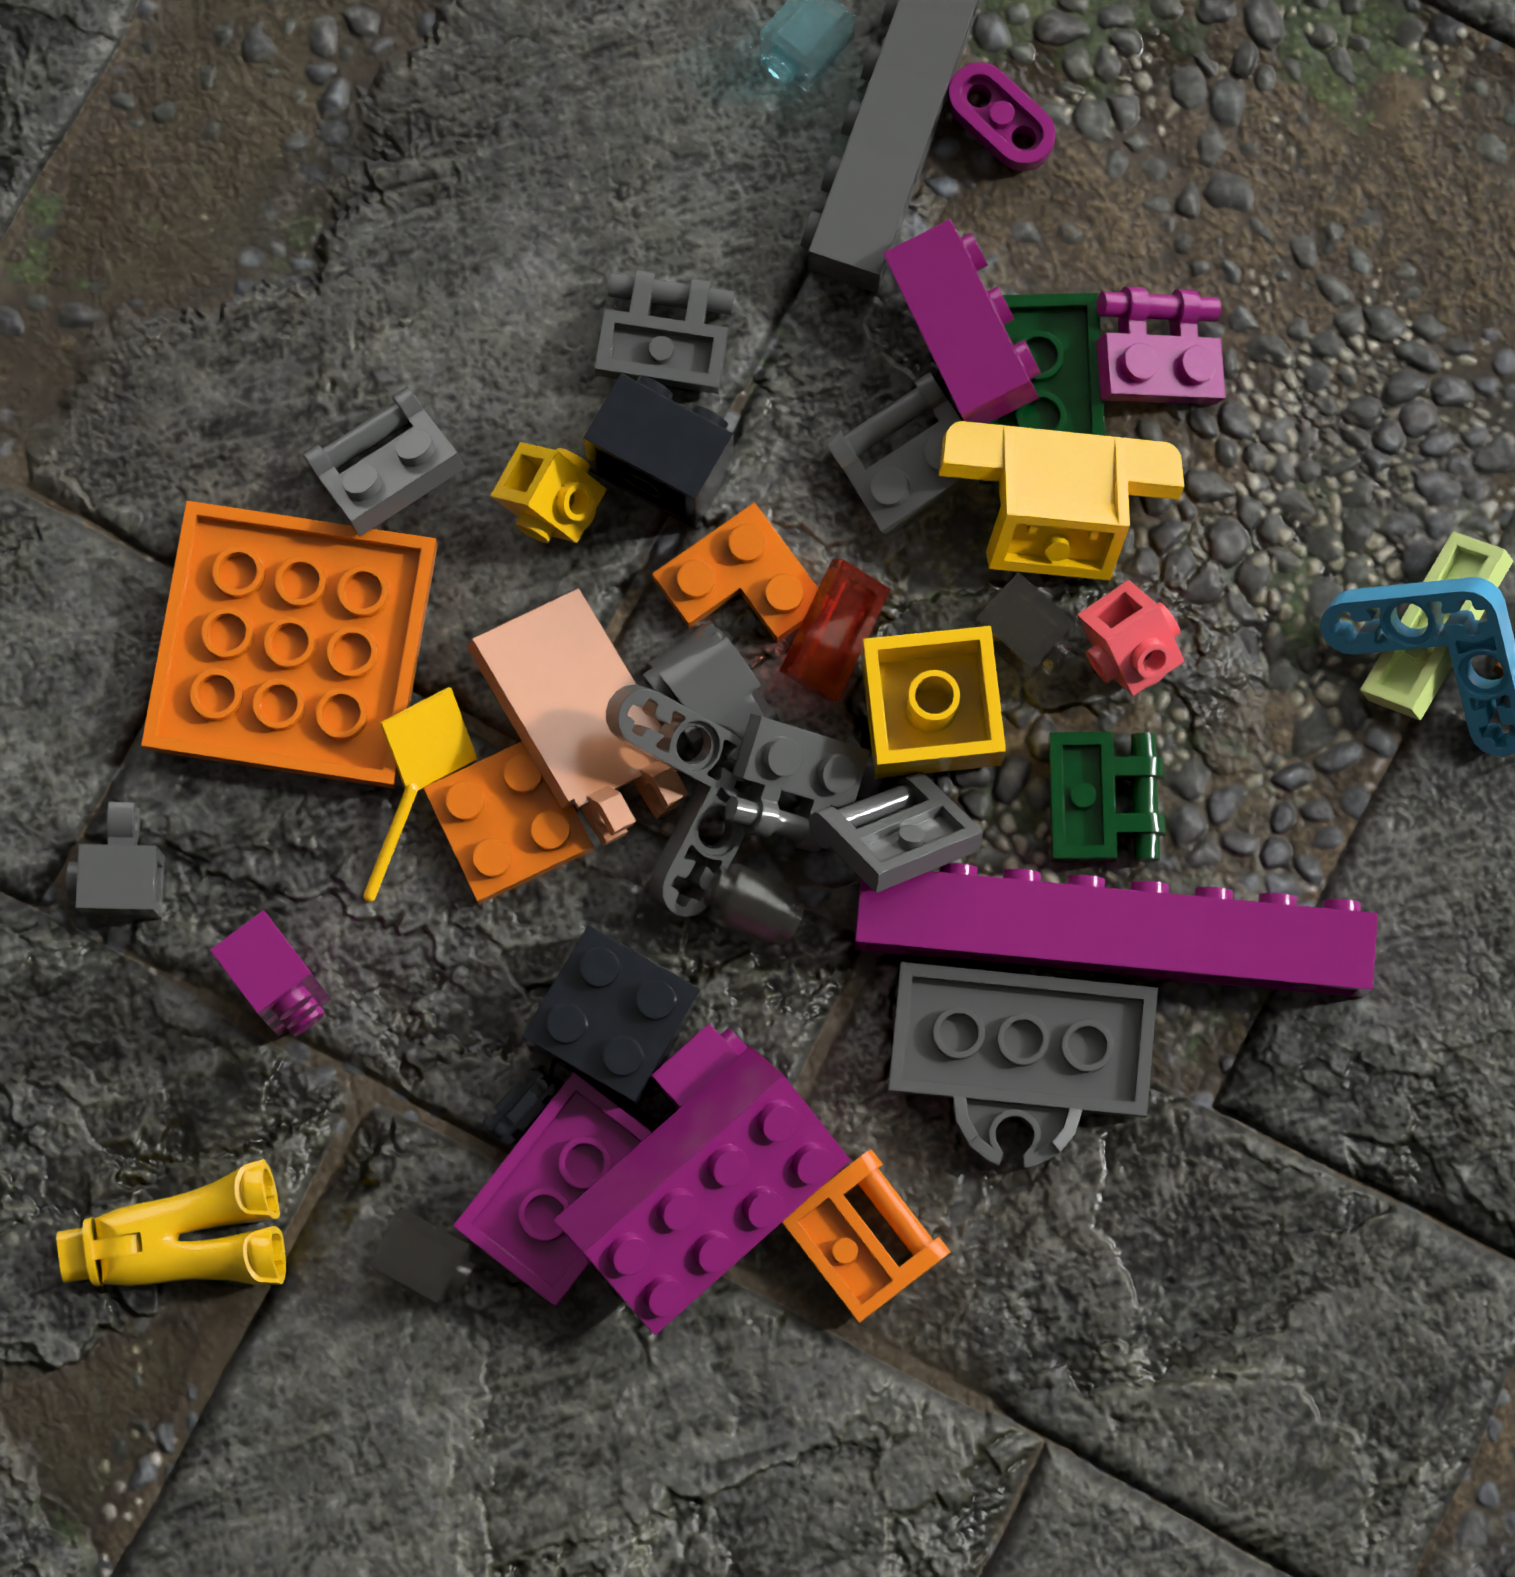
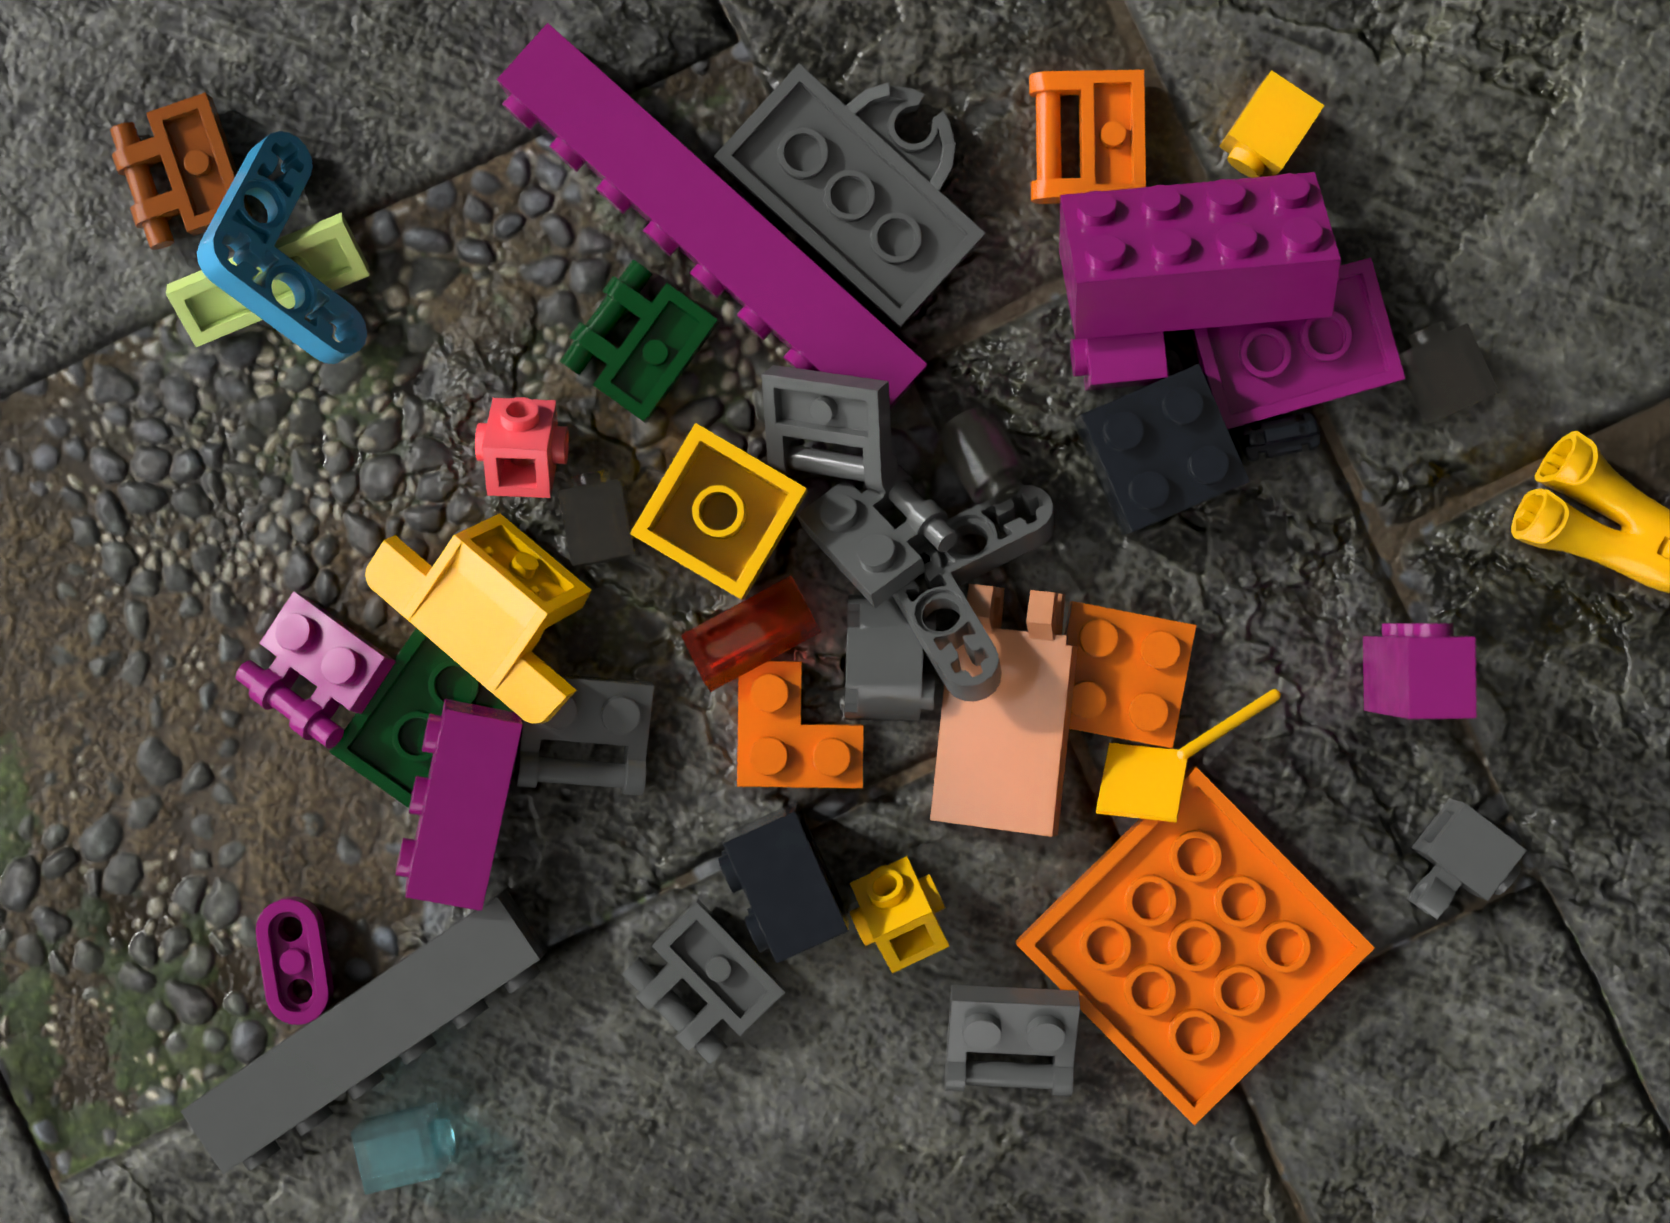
camera: 145 degrees left, 10 degrees up
(718, 1351) = (1270, 127): none -> yellow brick

